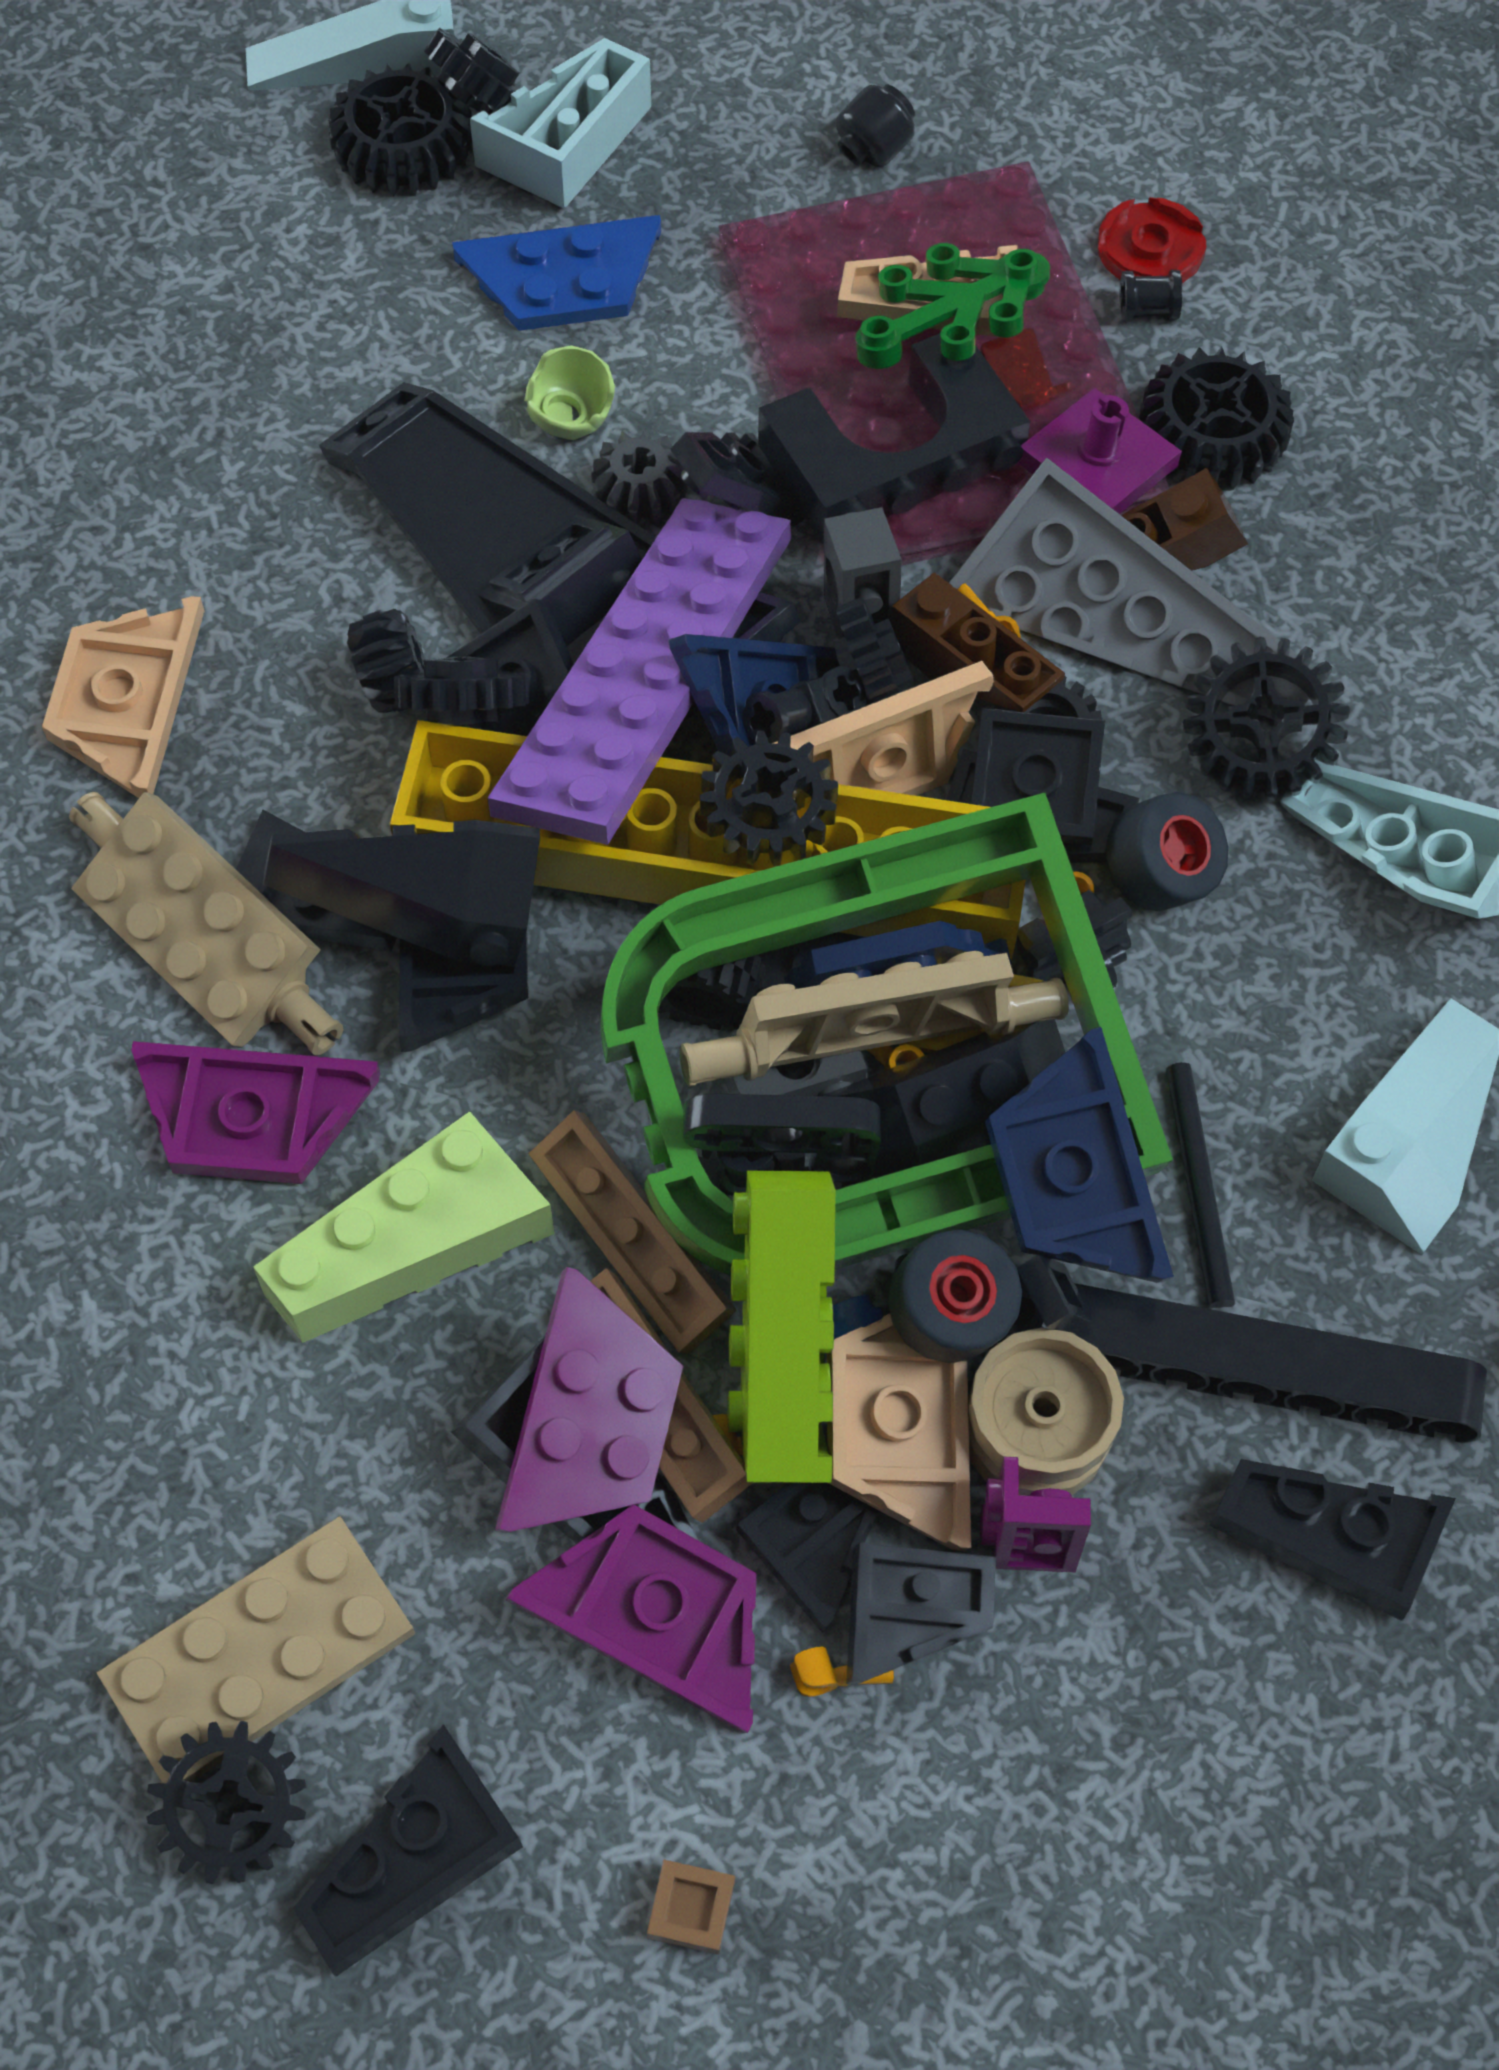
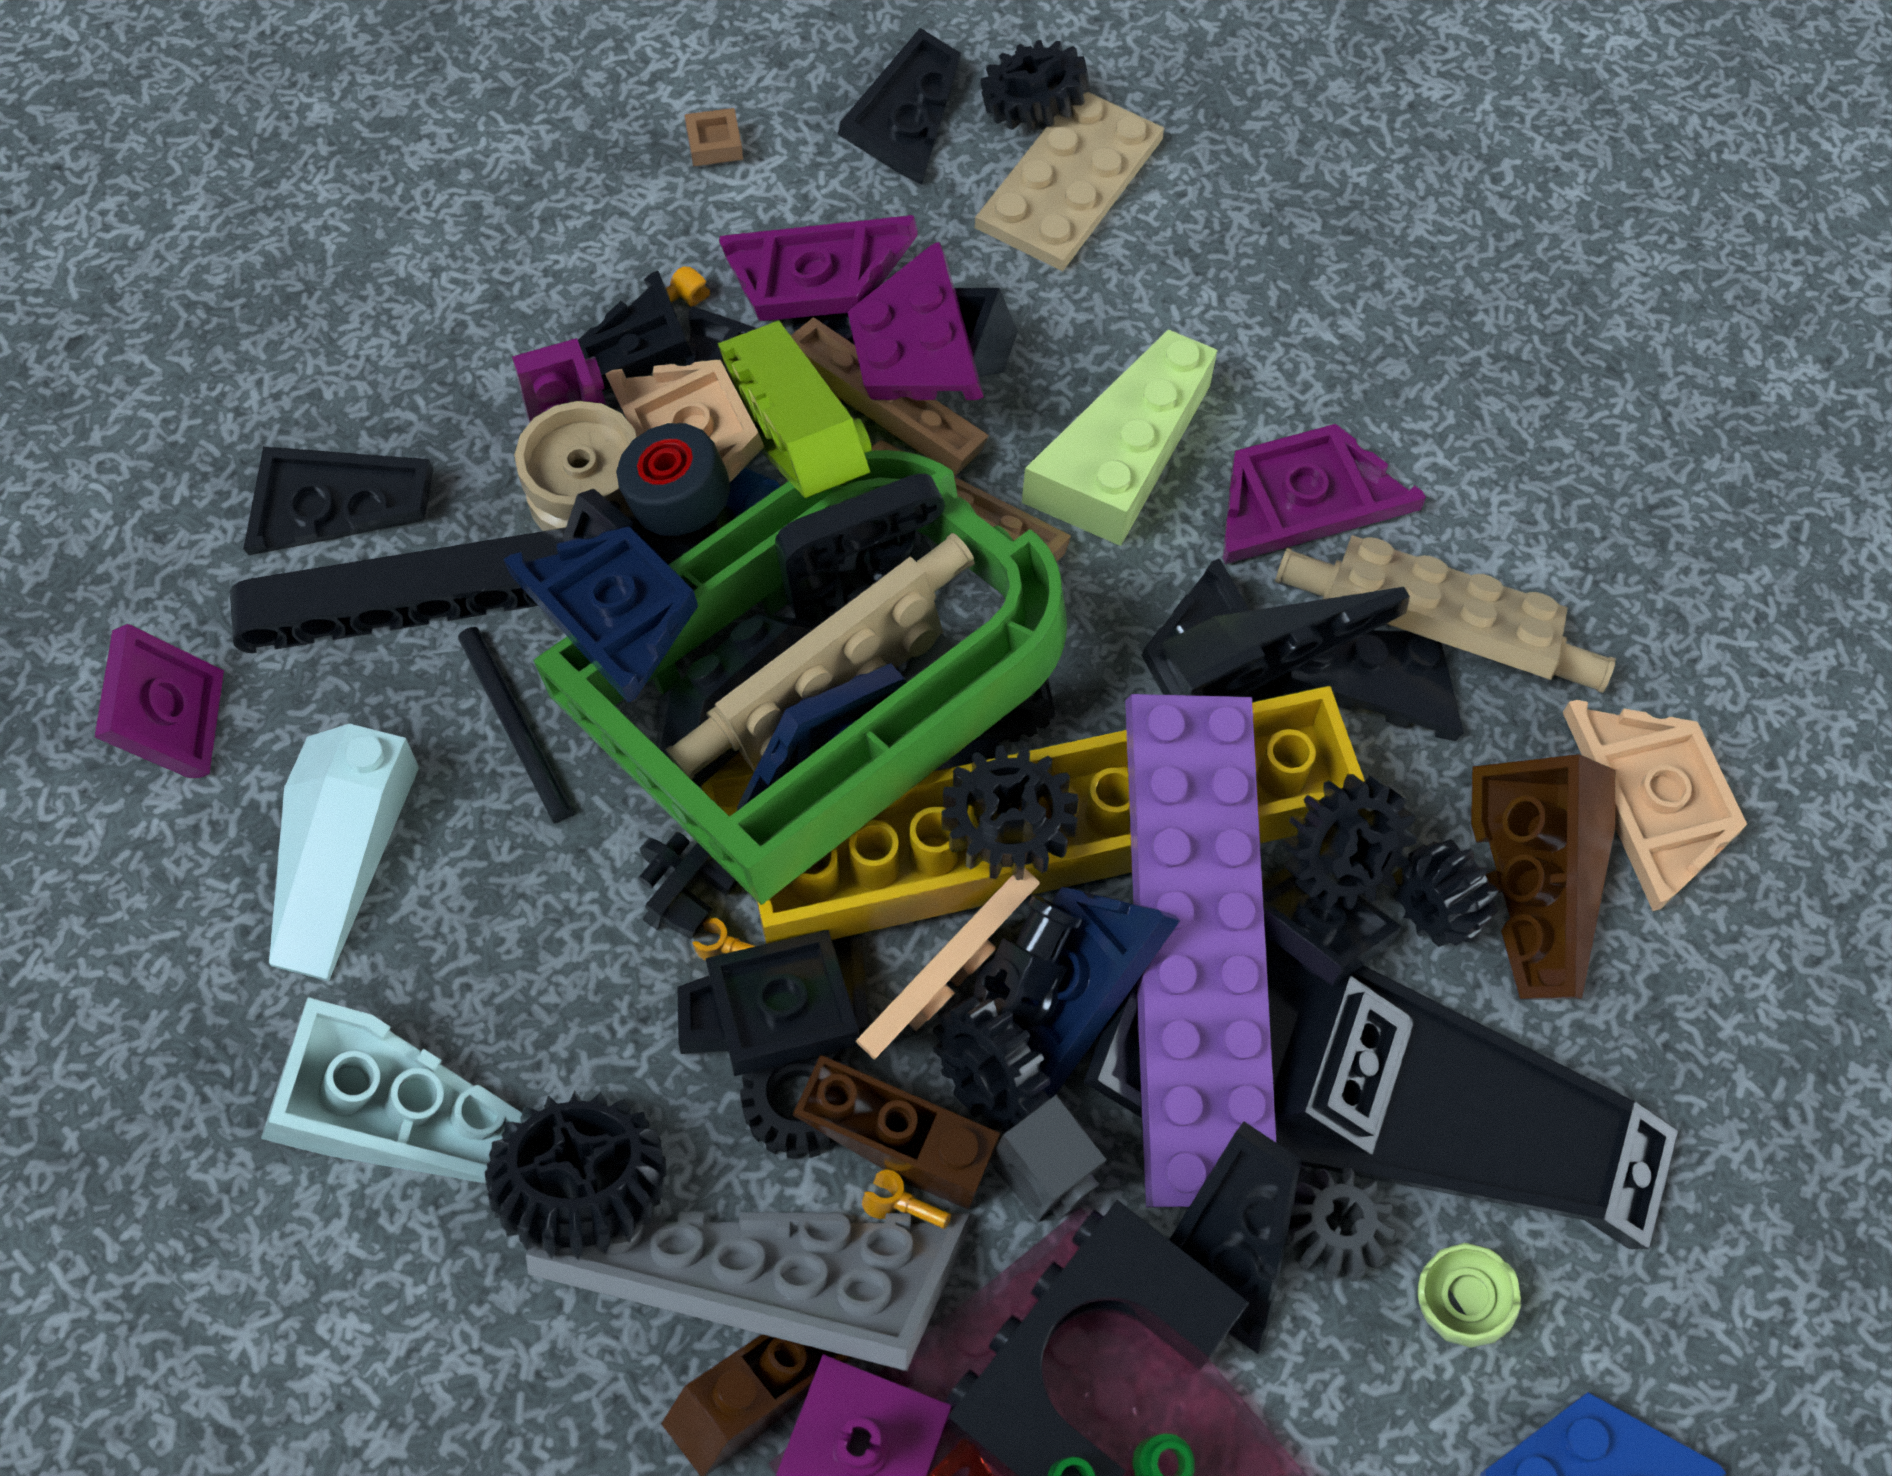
camera: 155 degrees right, 0 degrees up
(260, 681) = (1551, 853): none -> reddish brown wedge
(1167, 851) = (633, 992): black wheel -> none

